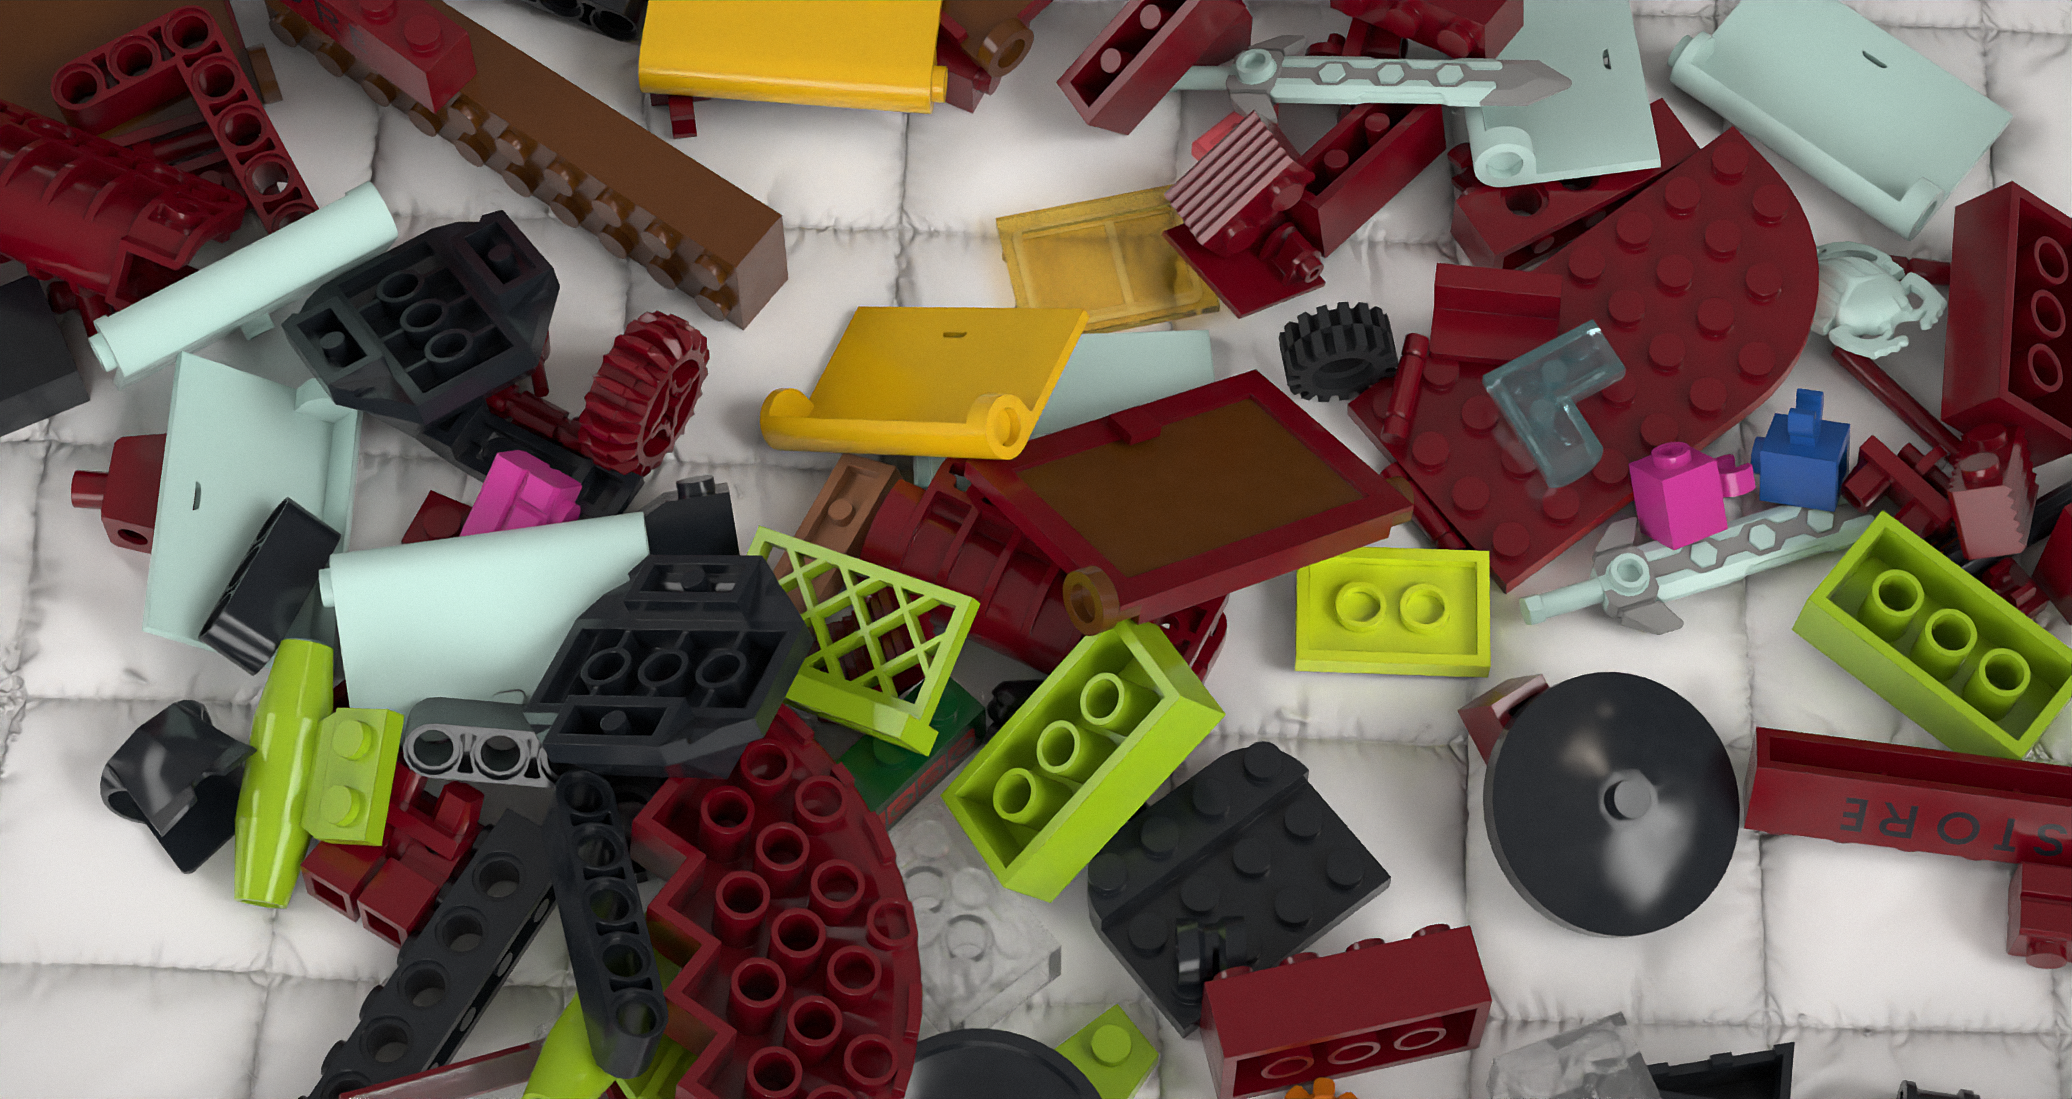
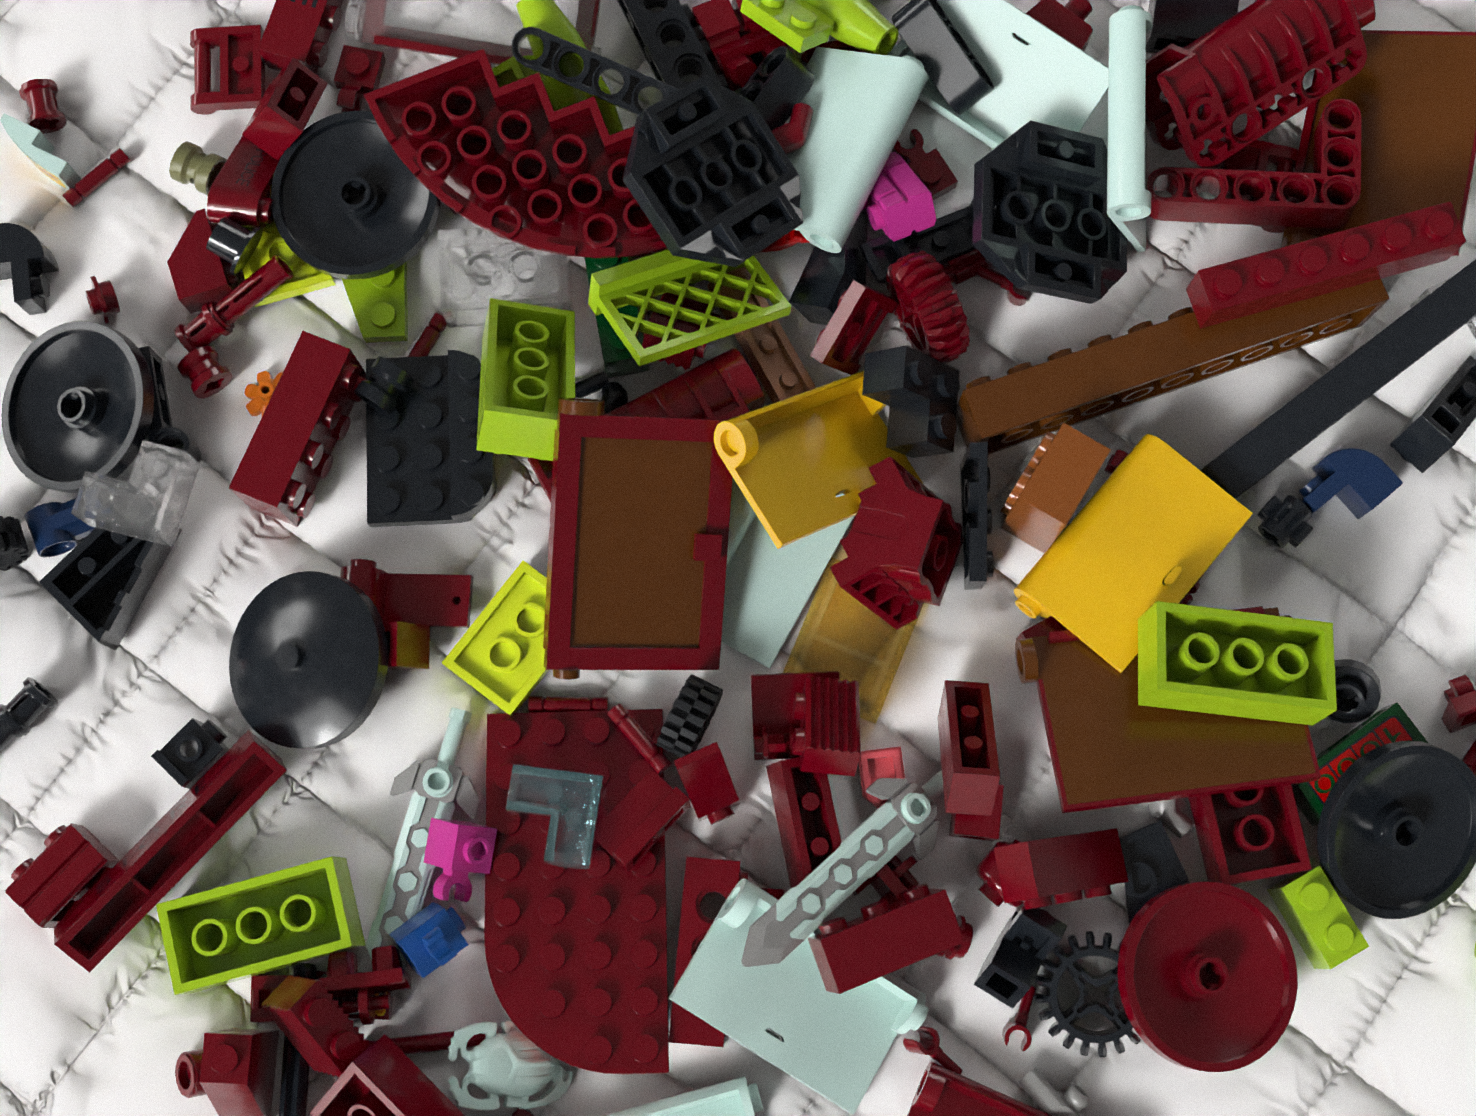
camera: 125 degrees right, 15 degrees up
(515, 669) = (794, 134): none -> dark red arm
(728, 456) = (852, 327): none -> dark red plate
(772, 342) = (920, 399): none -> black brick
(783, 122) = (1052, 486): none -> dark orange brick
(862, 212) = (976, 518): none -> black wing
(963, 247) = (899, 546): none -> dark red slope
(1097, 987) = (429, 336): none -> dark red wheel
(1396, 280) = (708, 783): none -> dark red slope
(1435, 763) = (414, 598): none -> dark red door
(1817, 894) = (189, 770): none -> black brick

